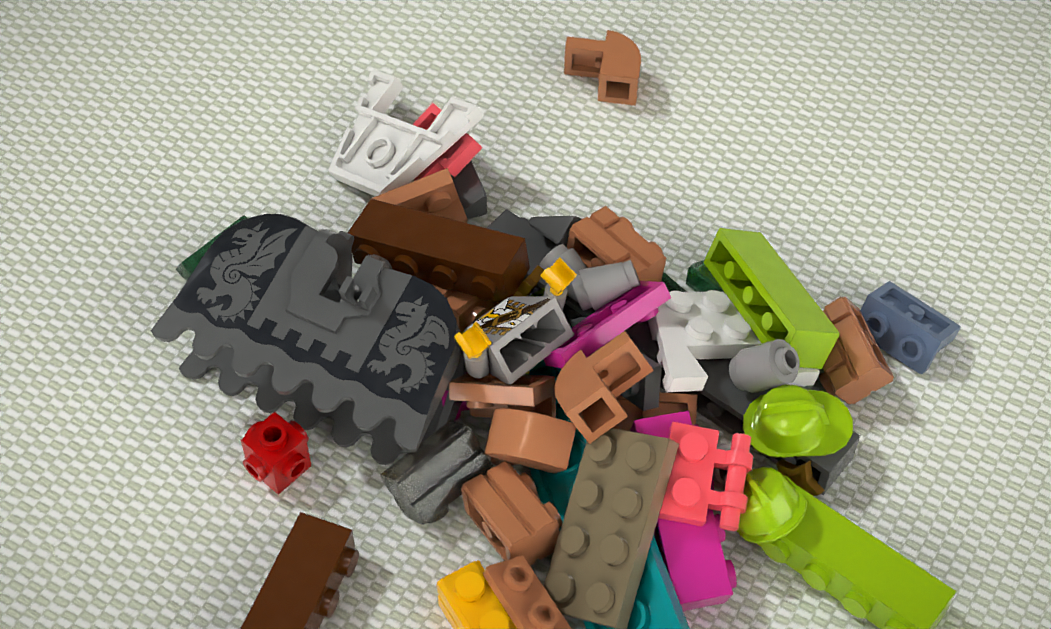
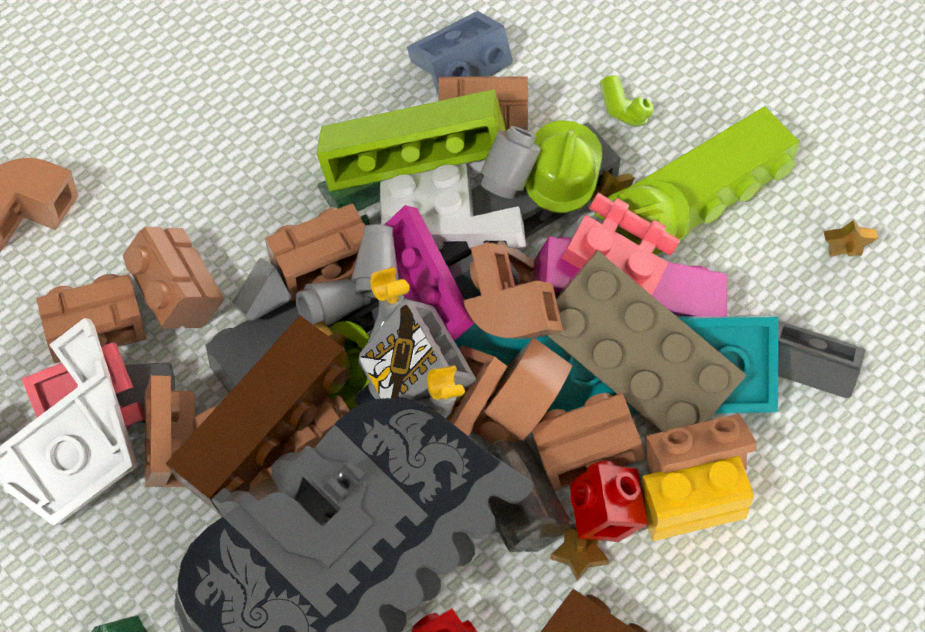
camera: 75 degrees left, 5 degrees up
(411, 545) = (579, 553): none -> pearl gold piece
(436, 541) = (608, 502): none -> red brick
(516, 139) = (106, 302): none -> nougat brick
(568, 174) = (172, 277): none -> nougat brick
(910, 474) = (621, 108): none -> lime arm

